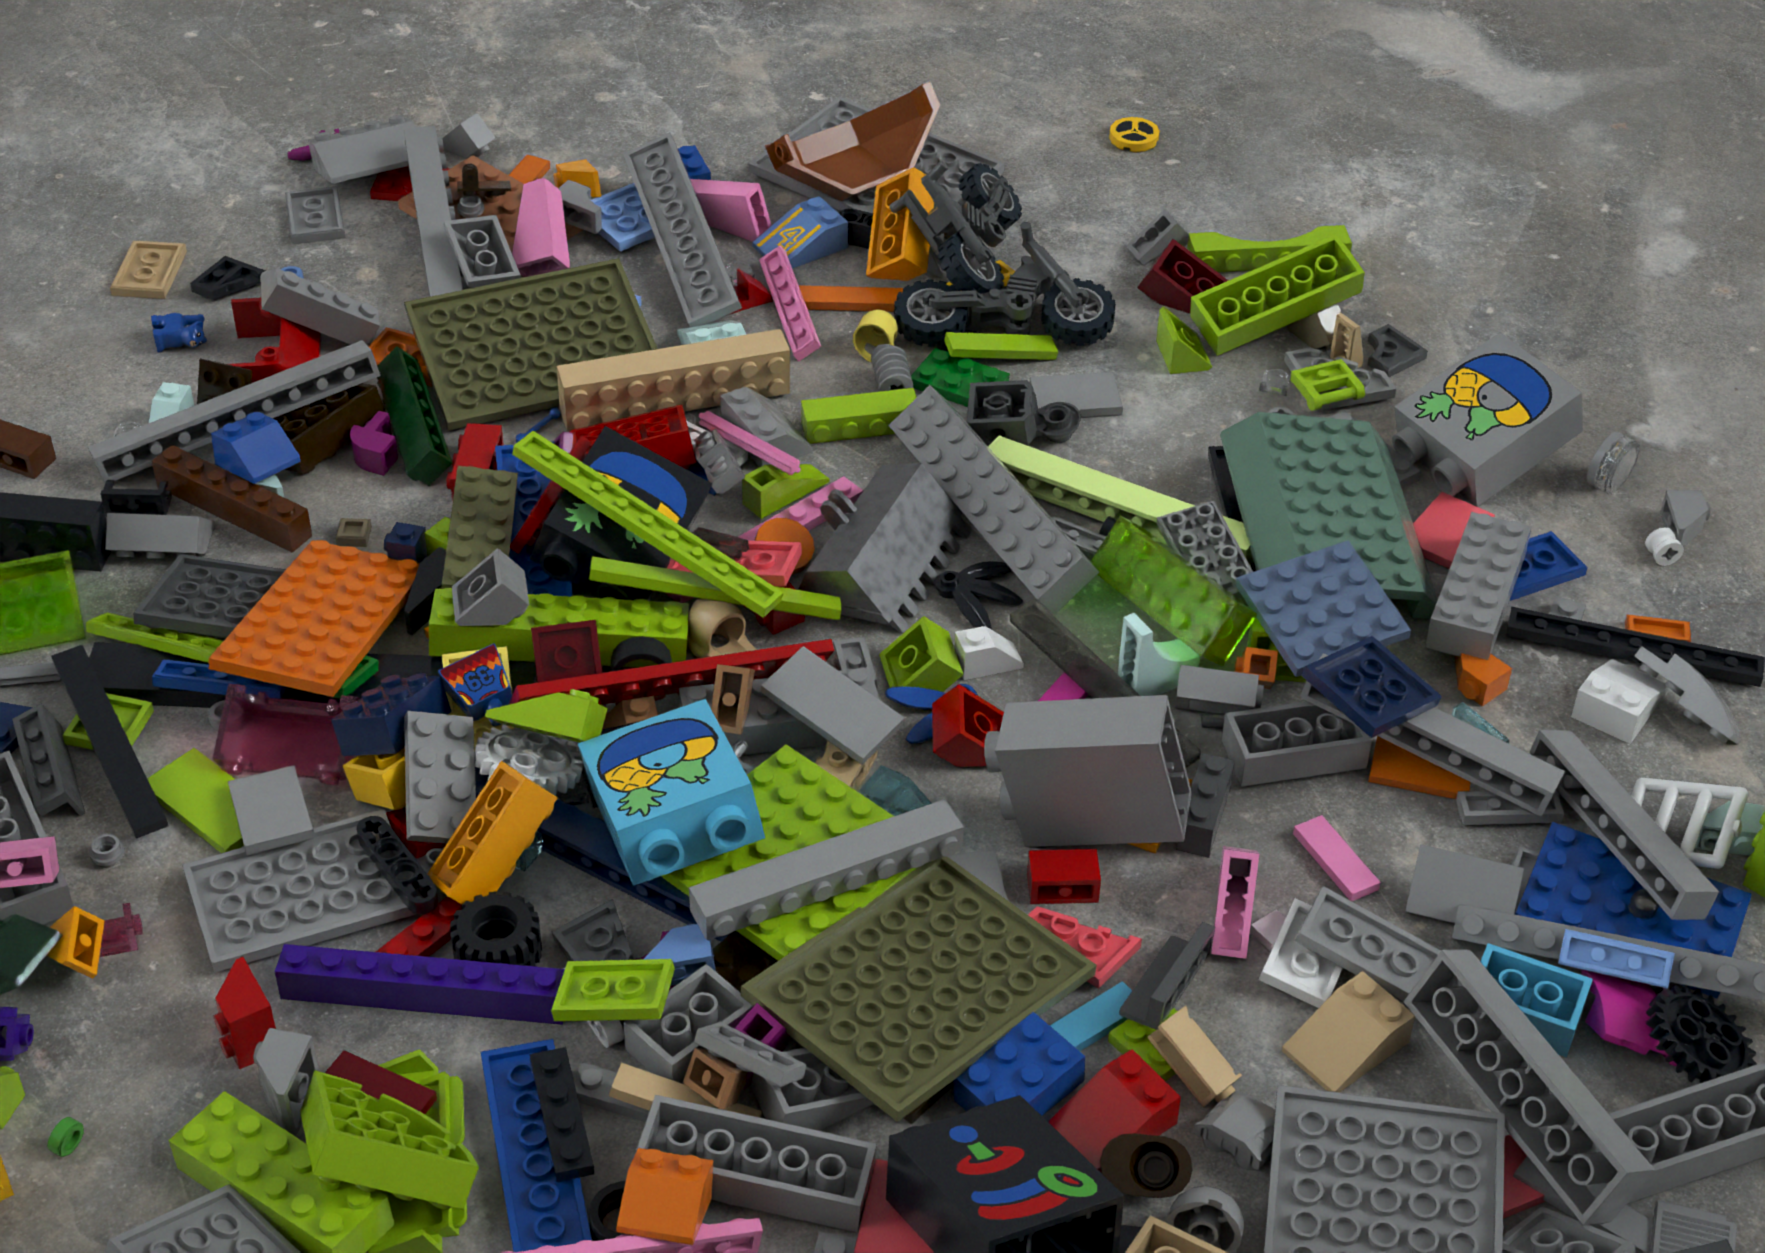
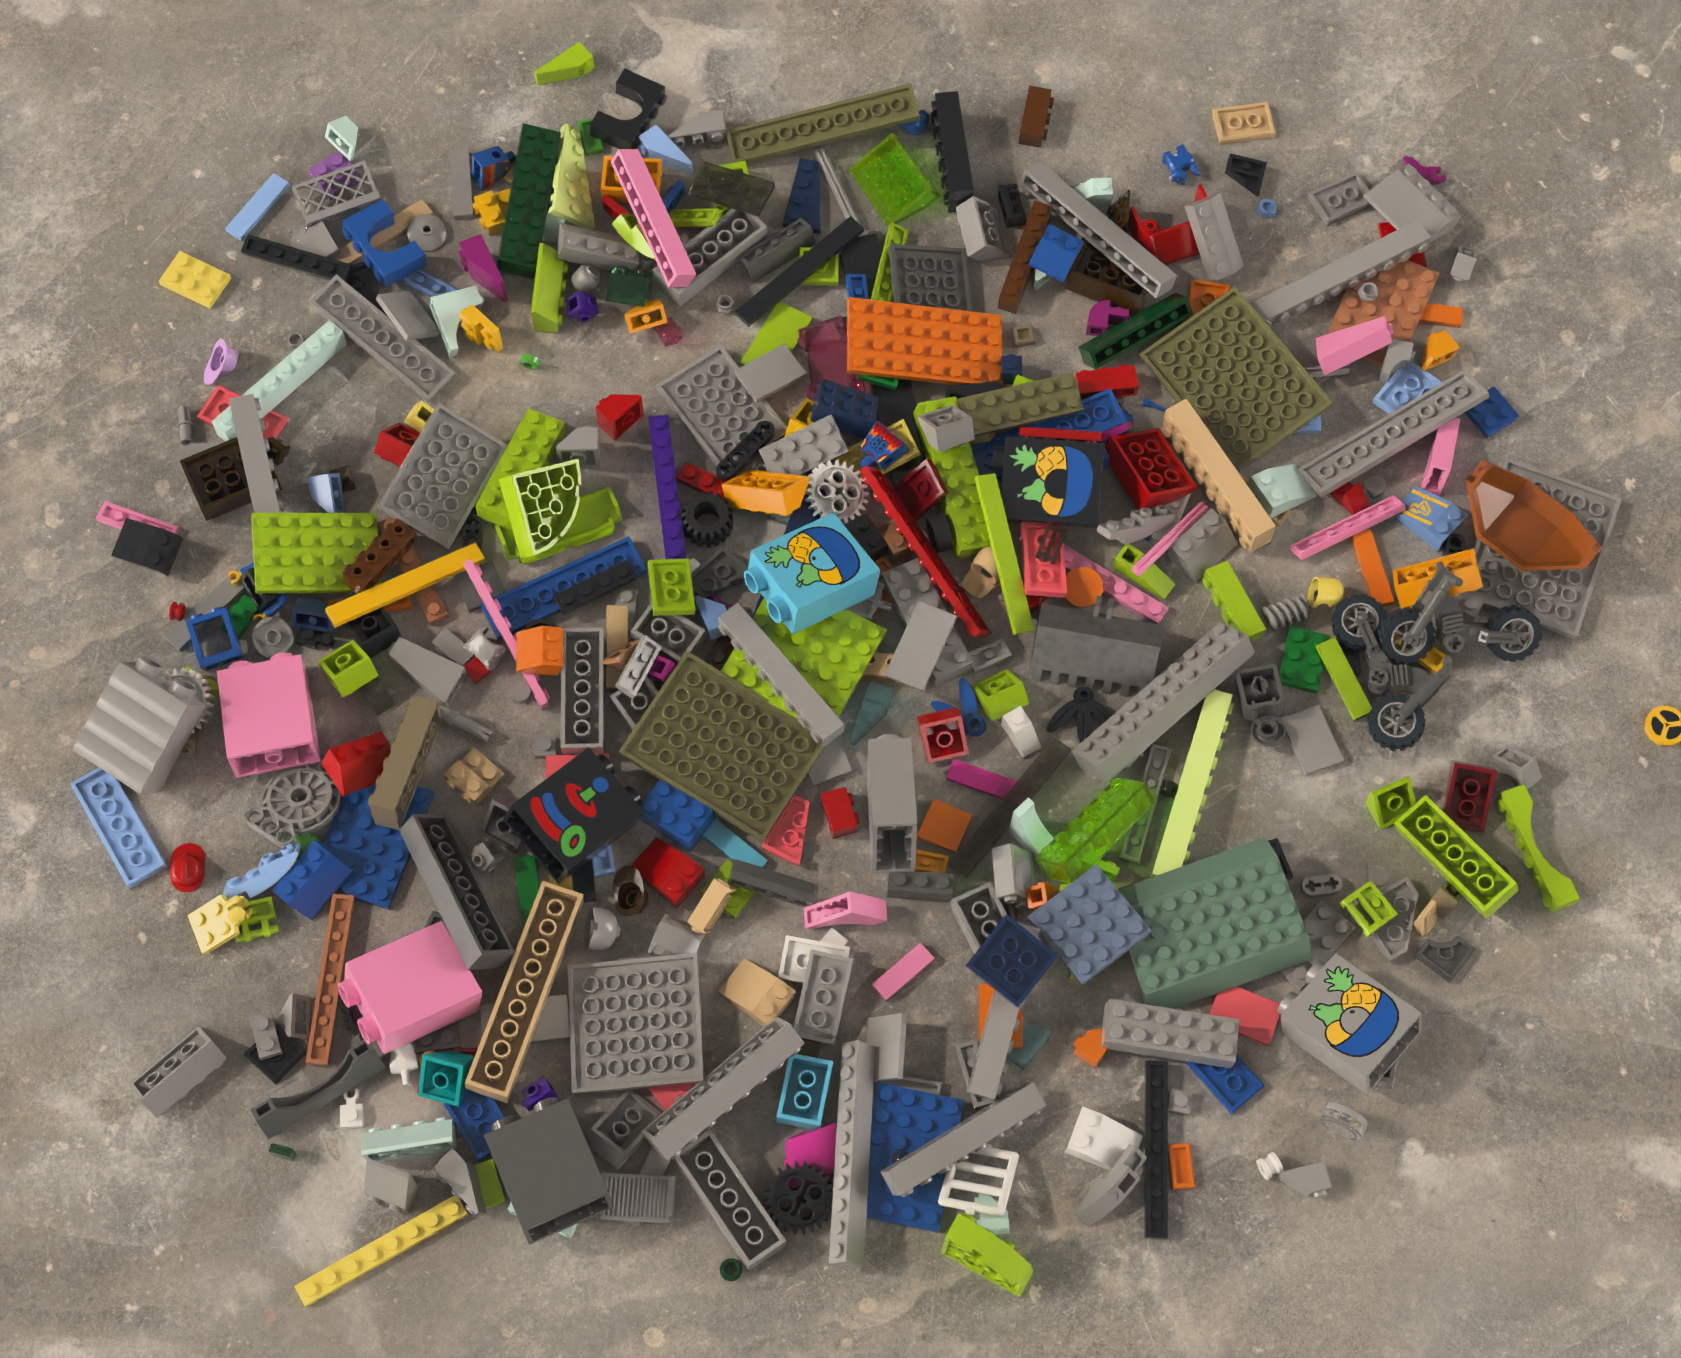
camera: 75 degrees right, 25 degrees up
(379, 1081) = (594, 495): dark red tile -> none
(471, 185) = (1391, 291): dark brown hinge -> none
(481, 250) = (1309, 316): light grey slope -> none
(559, 715) = (850, 495): lime slope -> none
(648, 524) = (1025, 495): lime plate -> none
(732, 697) = (906, 587): medium nougat slope -> none
(1206, 542) = (1142, 849): light grey tile -> none
(1616, 958) = (835, 1137): light blue tile -> none

